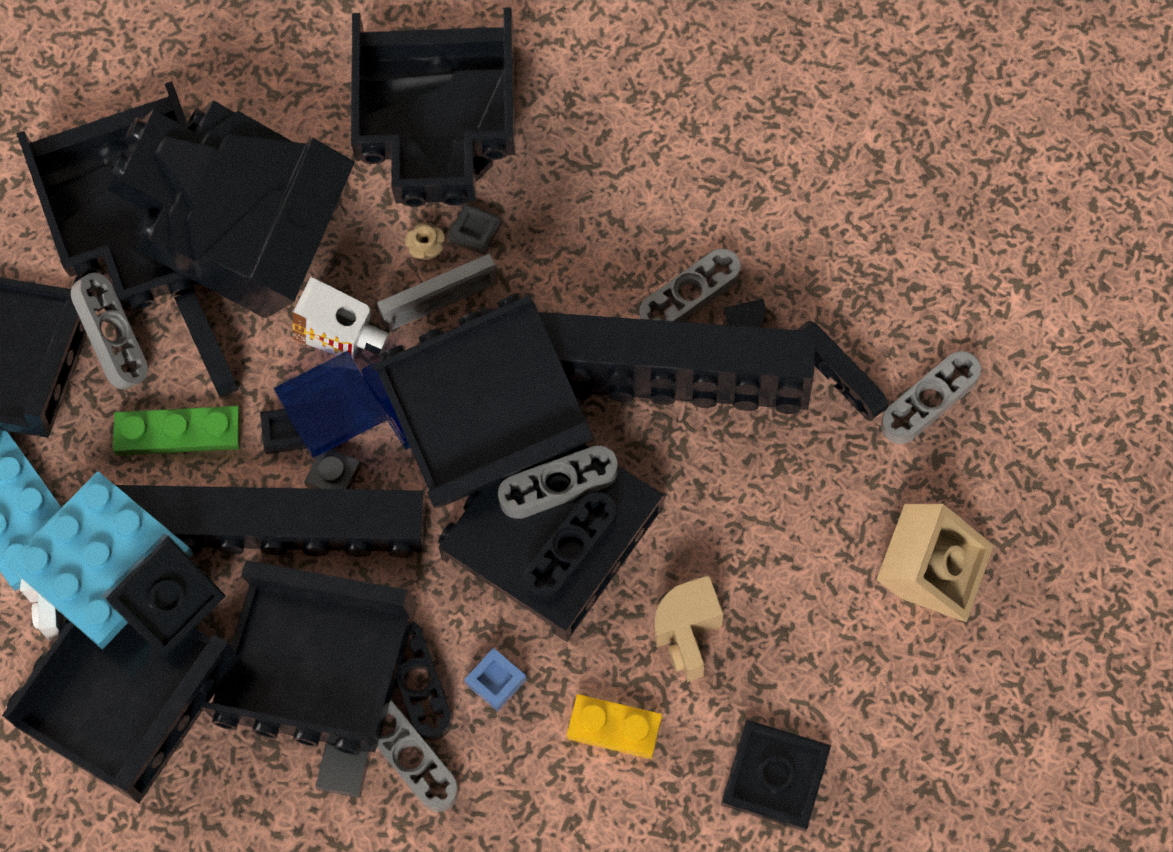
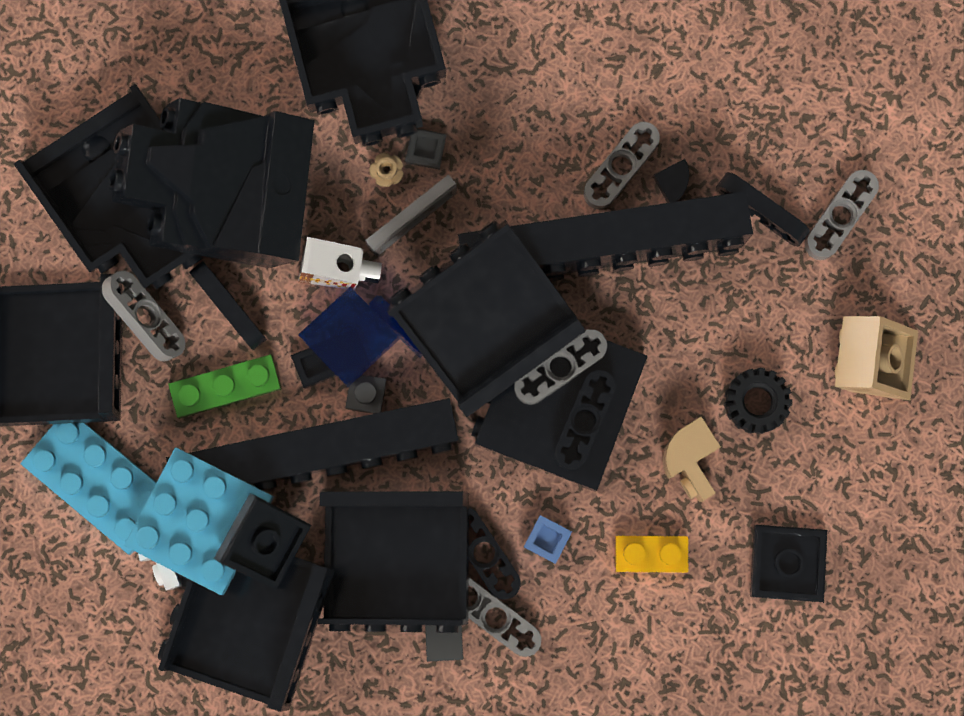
camera: 15 degrees left, 15 degrees up
(789, 555) = (773, 386): none -> black tyre

